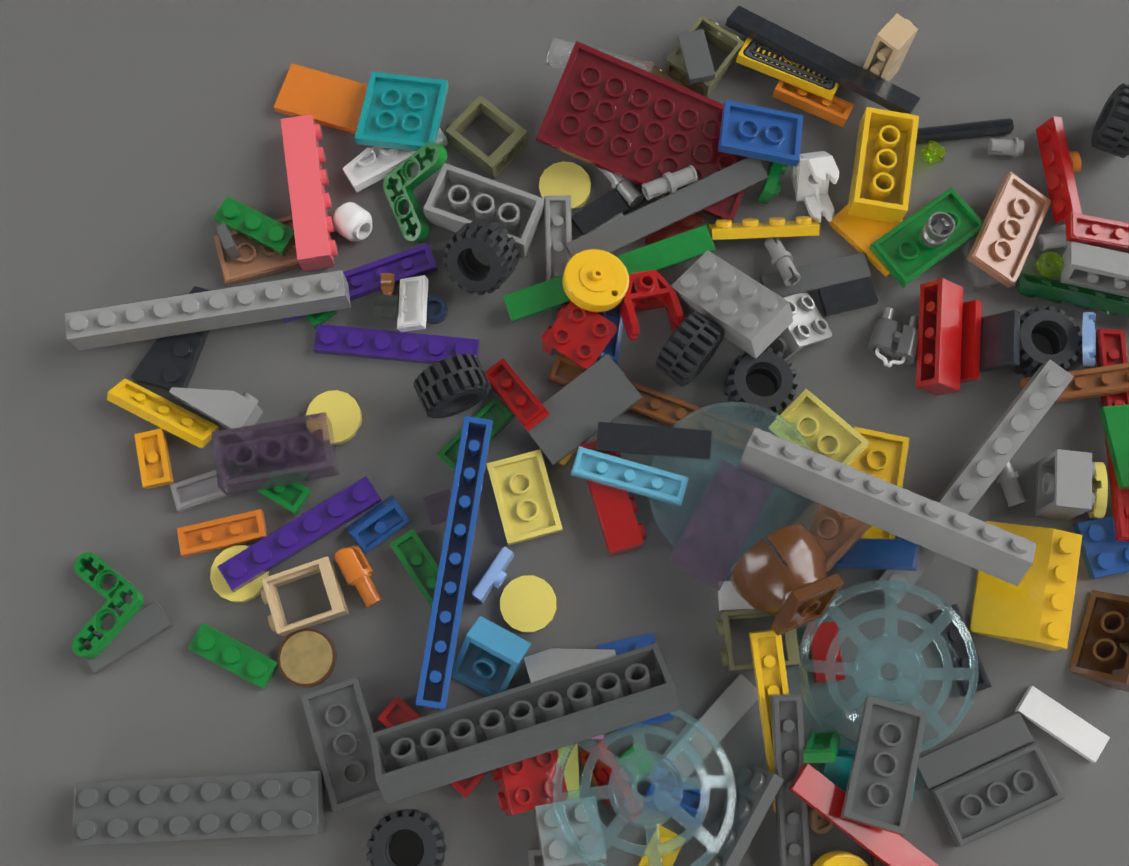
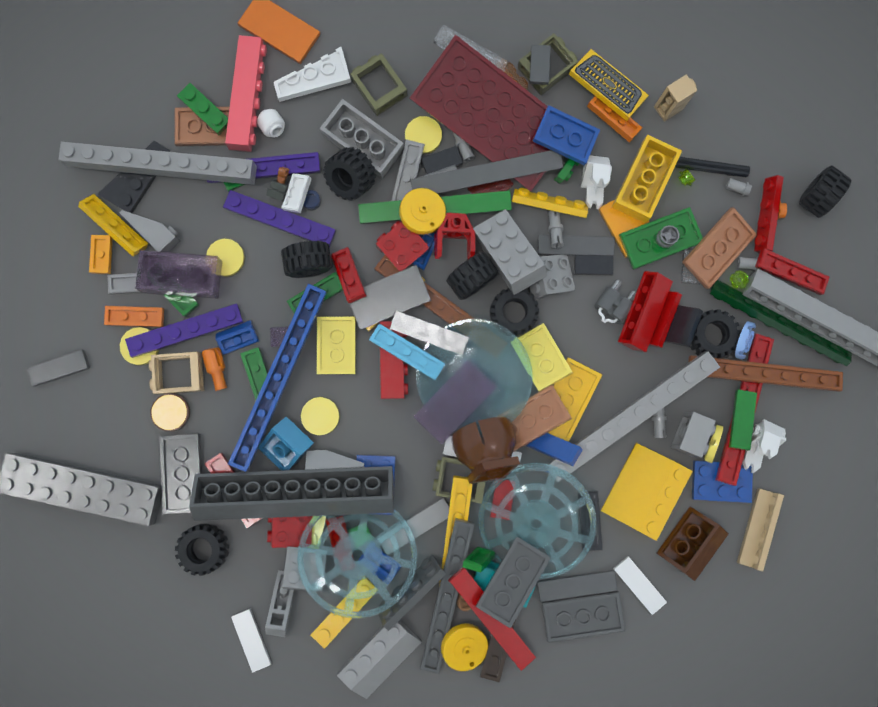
camera: 15 degrees right, 10 degrees up
(114, 597) = (55, 341): green beam -> none
(228, 241) = (182, 116): dark grey tile -> none
(233, 655) = (123, 398): green plate -> none
(401, 111) = (324, 52): teal plate -> none
(407, 184) = (308, 108): green beam -> none
(494, 575) = (302, 392): light blue plate -> none
(669, 182) = (493, 154): light grey pin -> none
(822, 61) = (629, 90): black tile -> none
(888, 507) = (565, 420): light grey brick -> none

